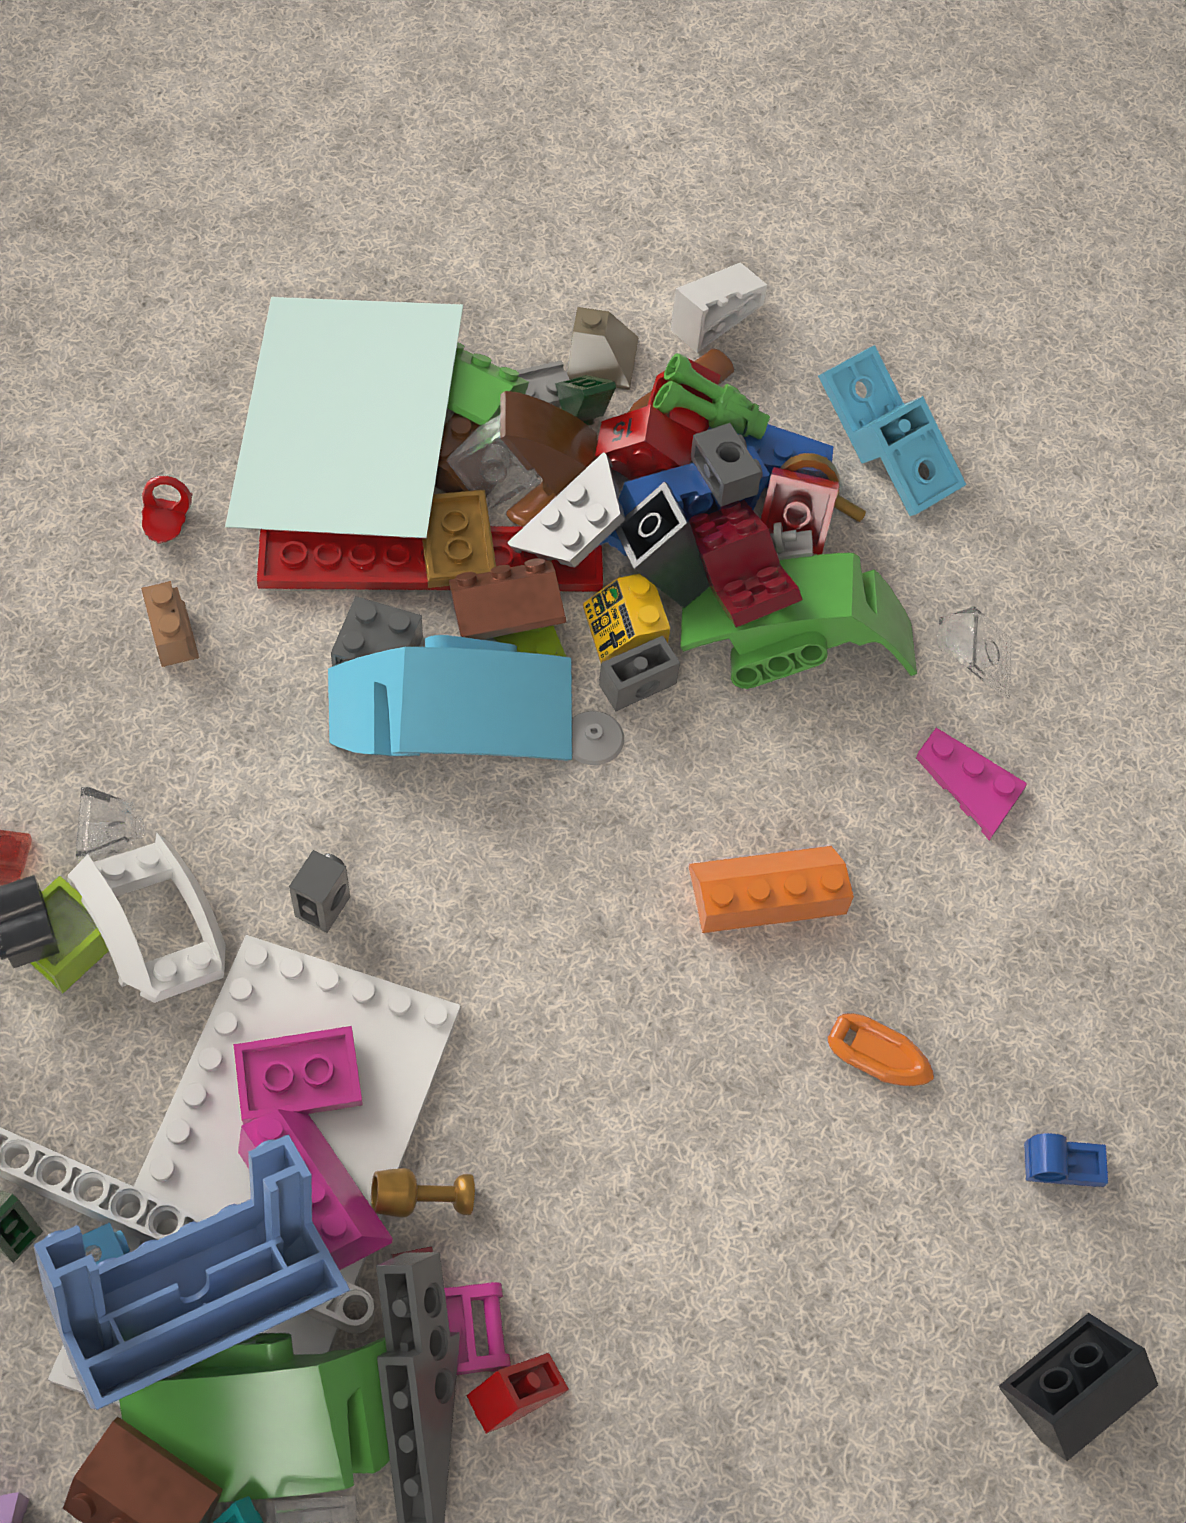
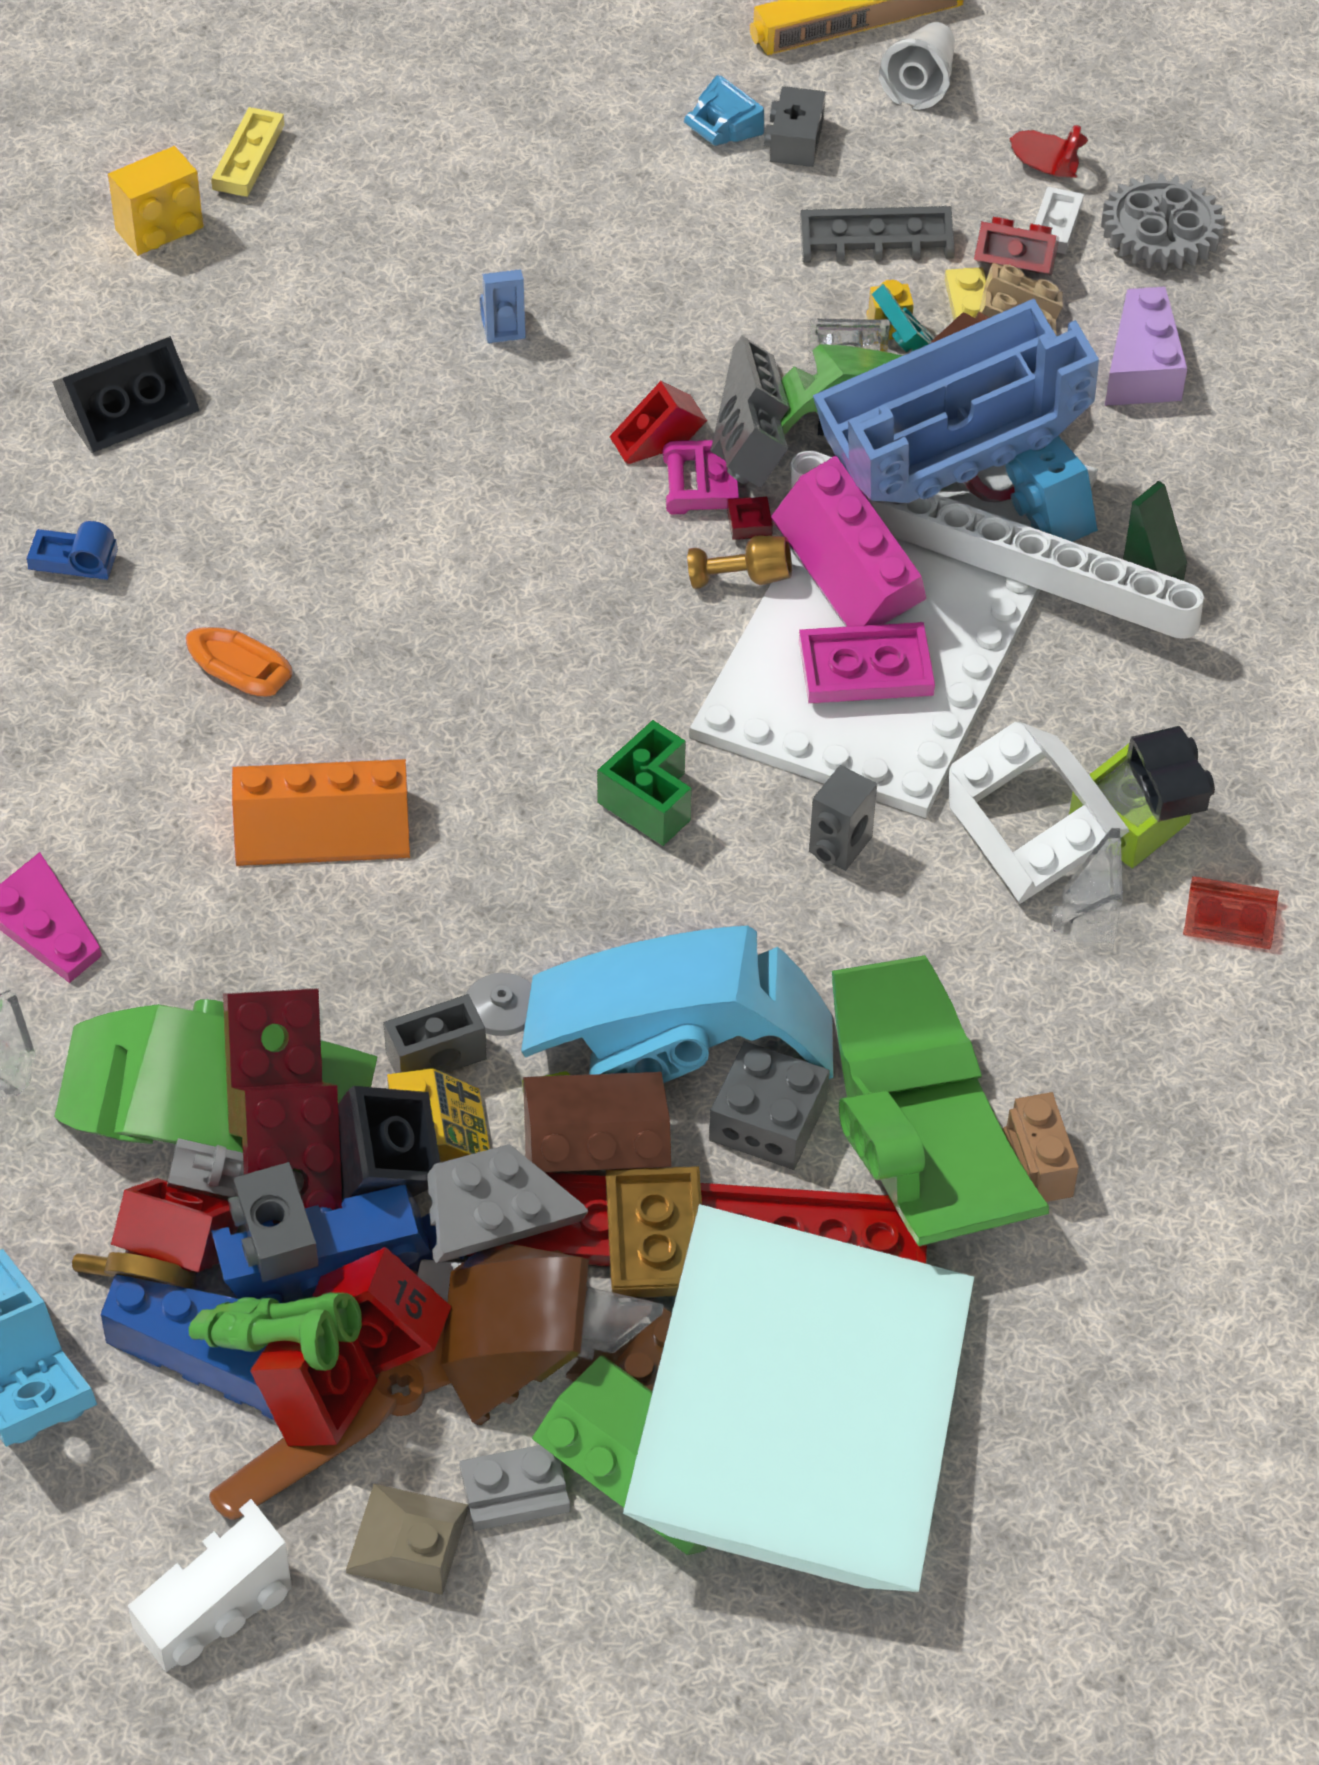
camera: 170 degrees left, 10 degrees down
(161, 517) = (1059, 1304): red piece -> none
(251, 618) = (919, 1105): none -> bright green beam
(500, 924) = (644, 783): none -> green brick
(585, 397) = (450, 1393): dark green slope -> none

